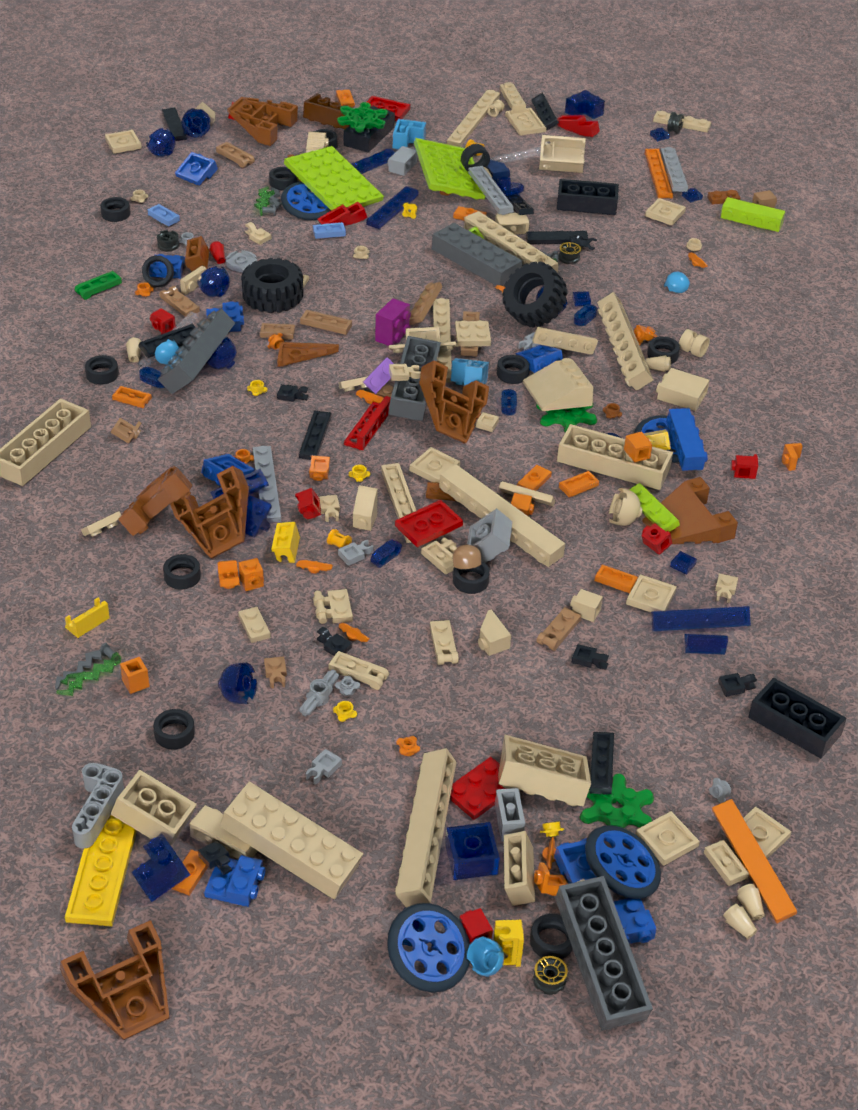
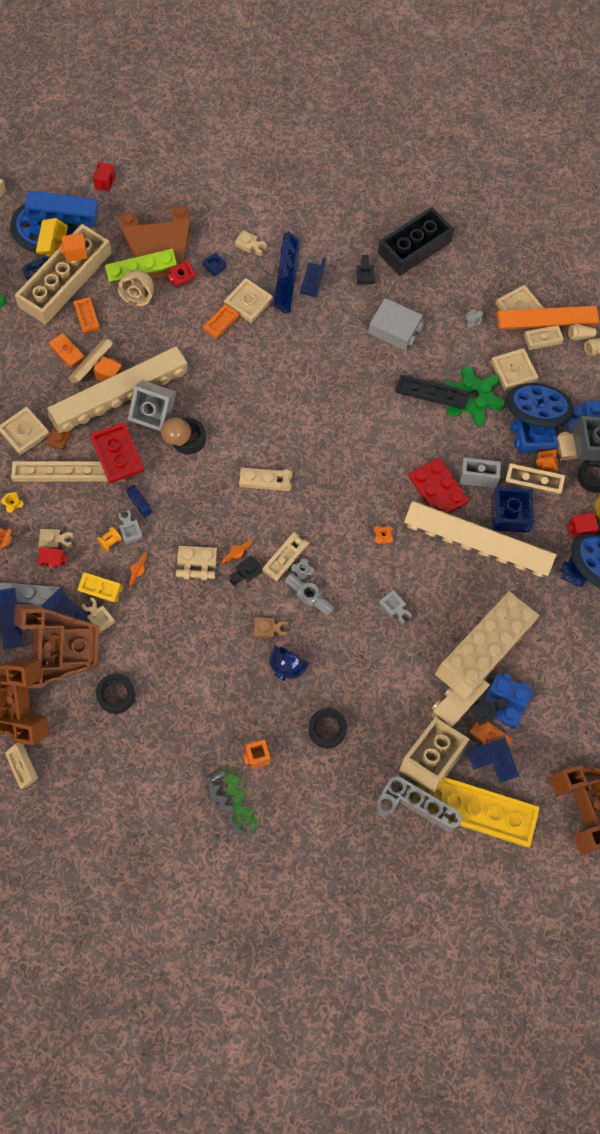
camera: 80 degrees left, 25 degrees up
(89, 619) = (160, 794): yellow hinge -> none
(228, 574) = (135, 649): orange bracket -> none
(251, 574) = (141, 627): orange brick -> none
(254, 624) = (203, 637): tan plate -> none
(257, 548) = (98, 616): none -> tan plate
(344, 711) = (332, 573): yellow plate -> none
(365, 508) = (78, 505): tan slope -> none
(440, 554) = (157, 454): tan plate -> none
(493, 635) = (268, 436): tan slope -> none
(544, 771) = (437, 435): tan slope -> none
(548, 853) = (514, 455): orange piece -> none
(551, 829) = (493, 447): yellow plate -> none
(559, 629) = (270, 383): medium nougat plate -> none
(587, 604) = (250, 353): tan brick -> none
(587, 656) = (311, 370): black plate -> none
(677, 718) = (395, 324): none -> light grey brick
(791, 454) = (100, 138): orange bracket -> none

